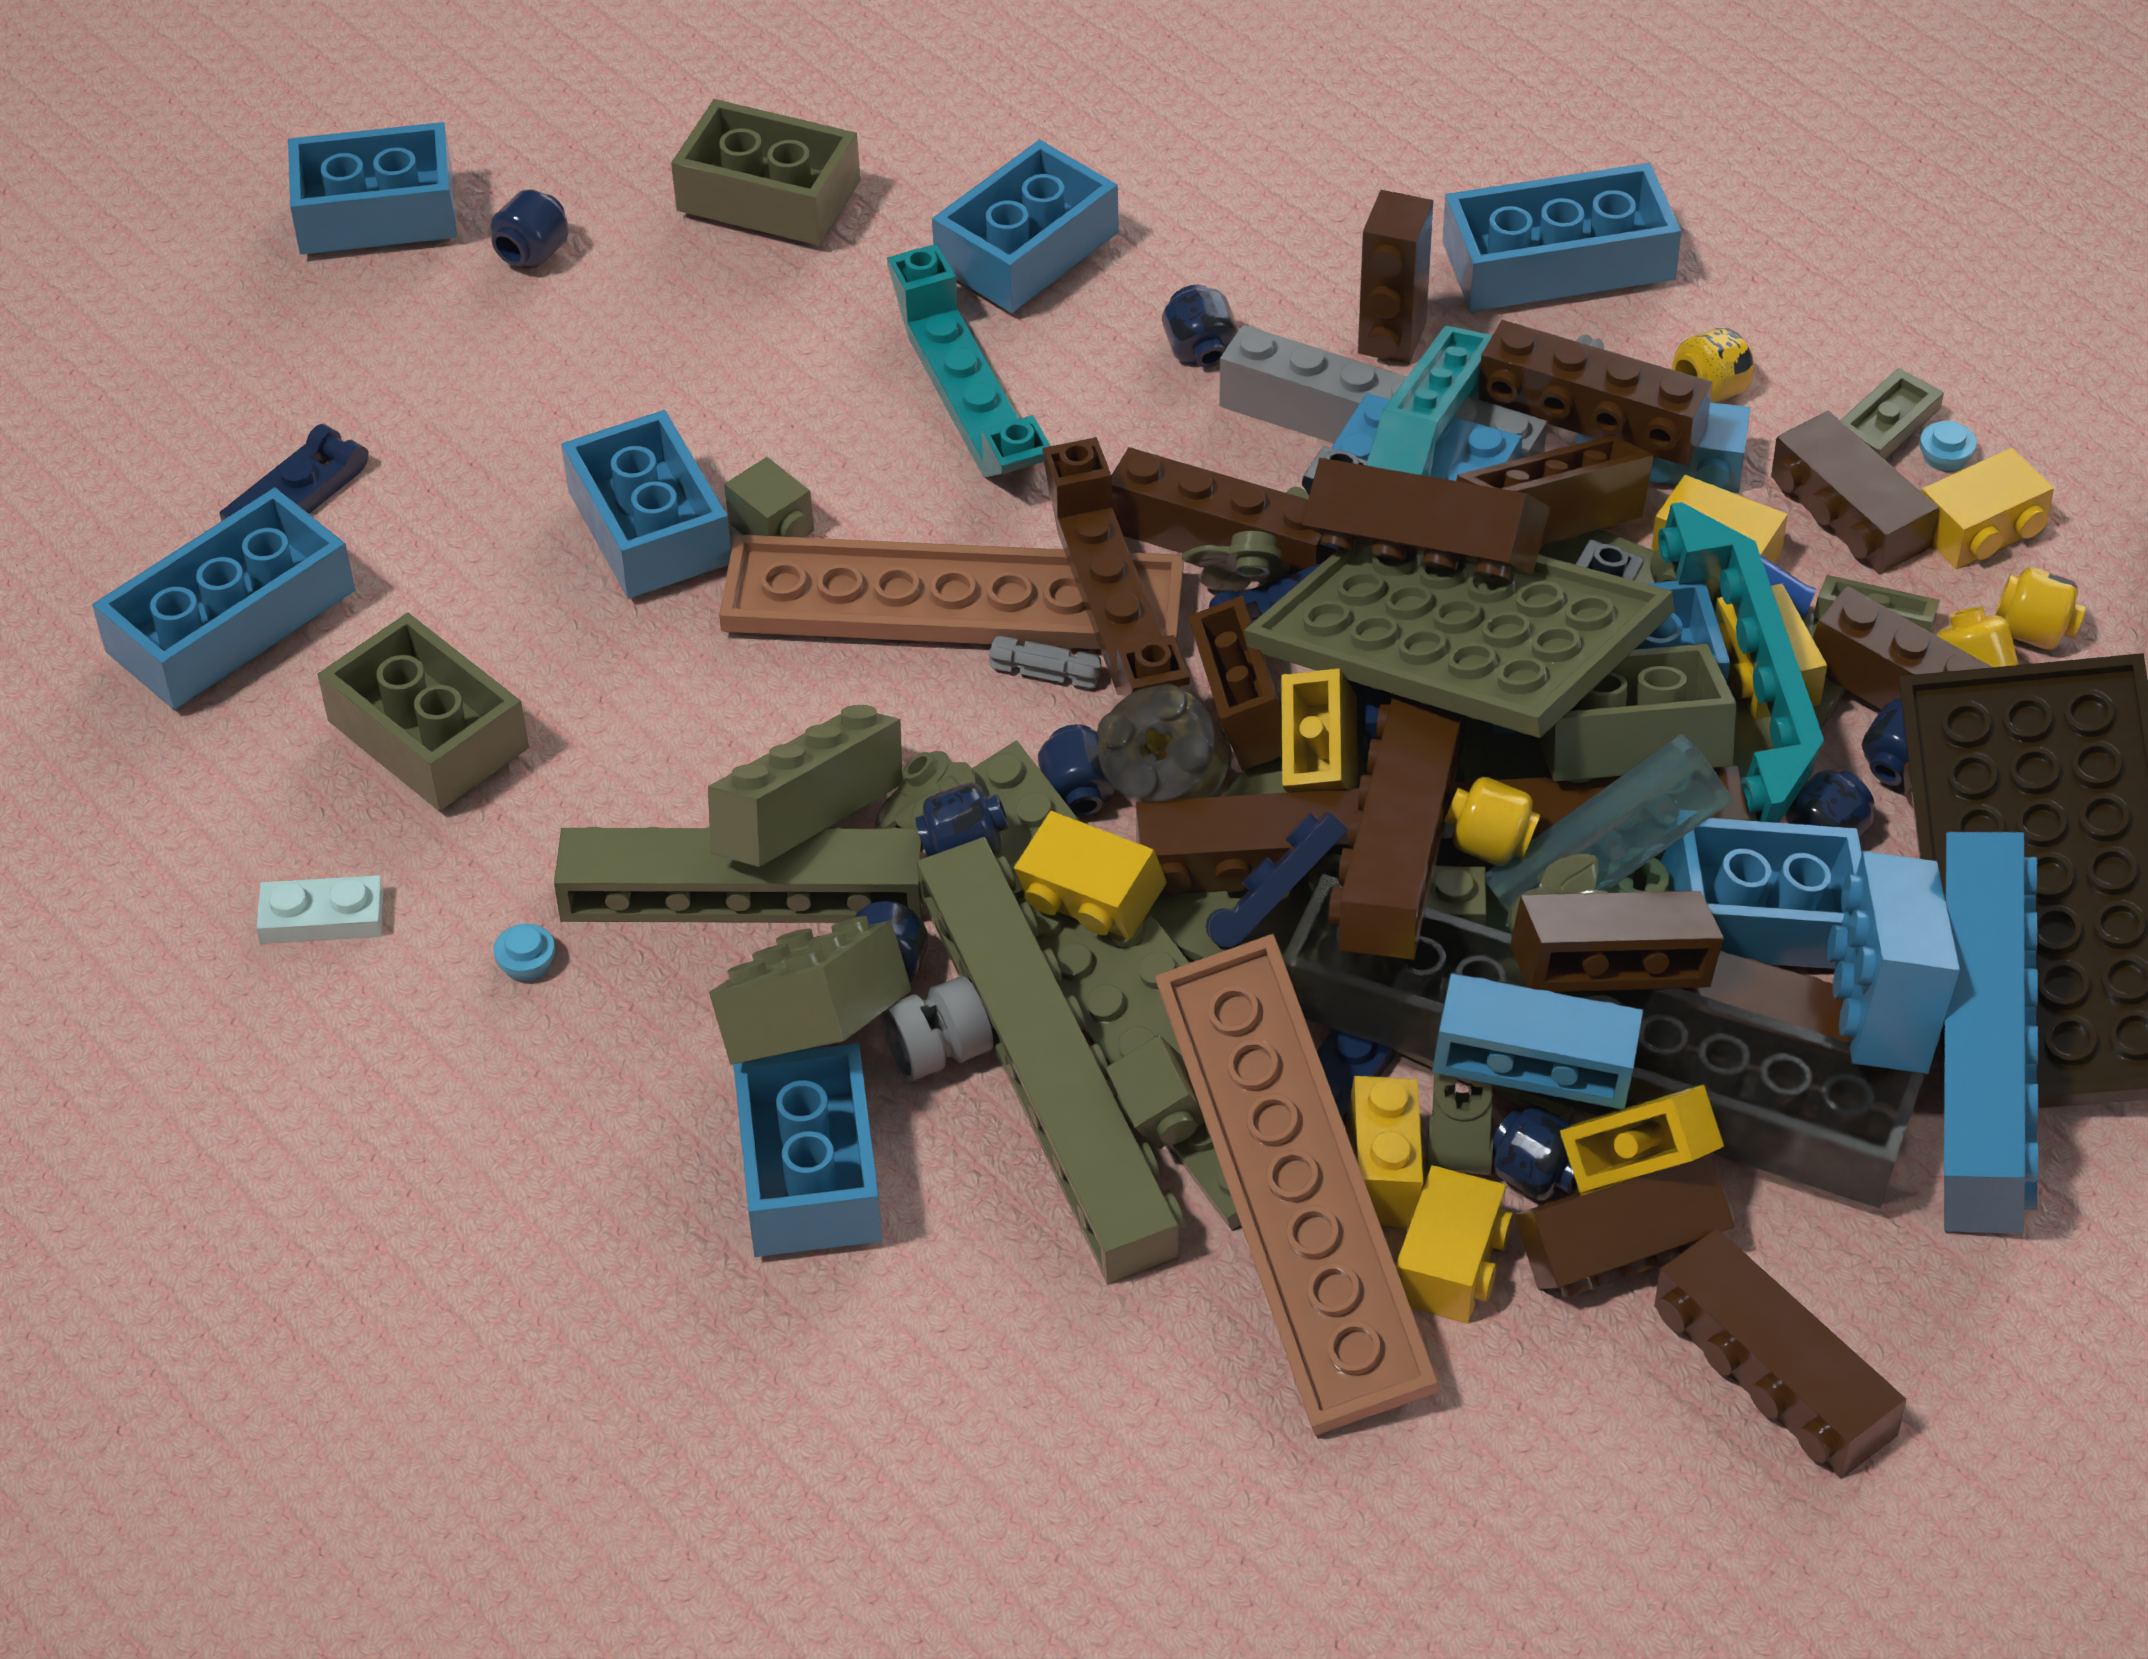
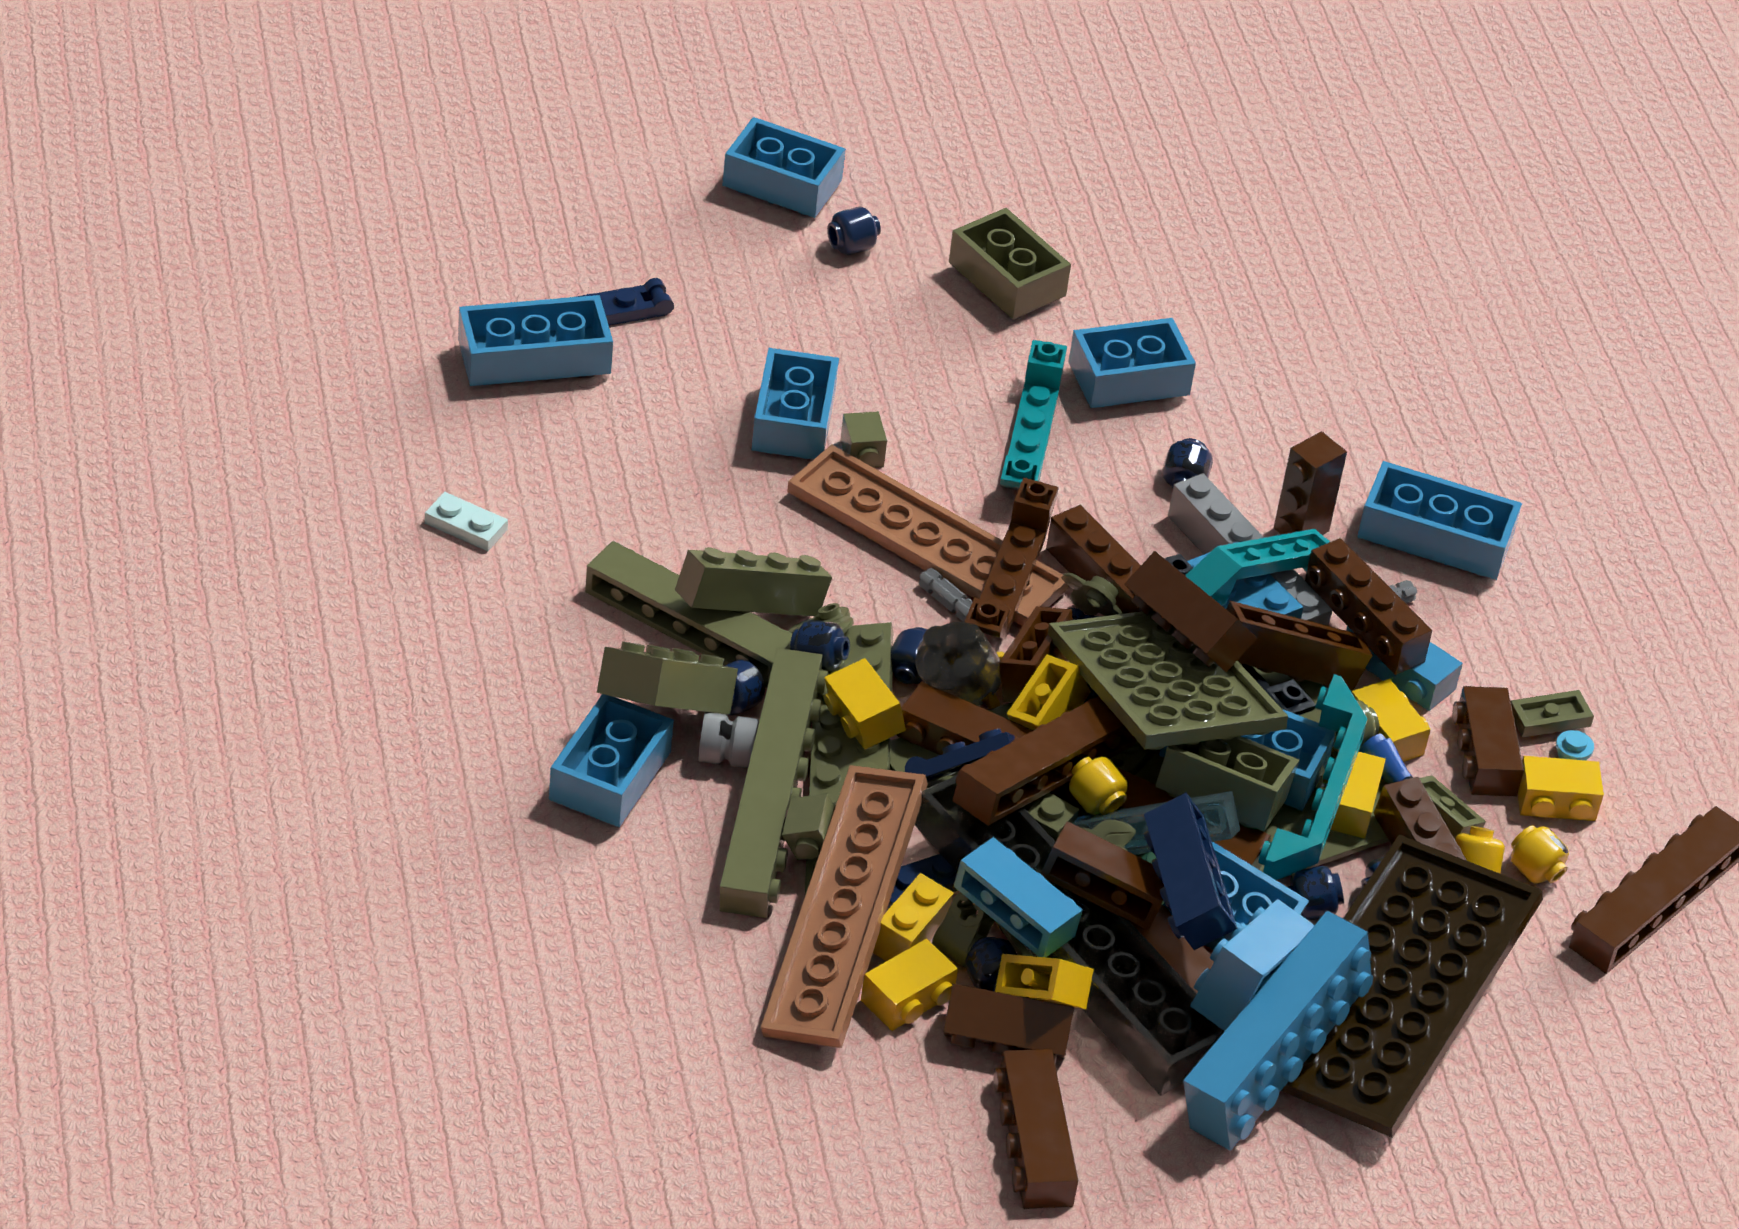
camera: 25 degrees right, 5 degrees down
(423, 711) = (591, 448): olive brick -> none
(524, 951) = (552, 595): medium azure plate -> none
(1717, 357) = (1469, 634): yellow head -> none
(1739, 876) = (1189, 872): none -> dark blue brick

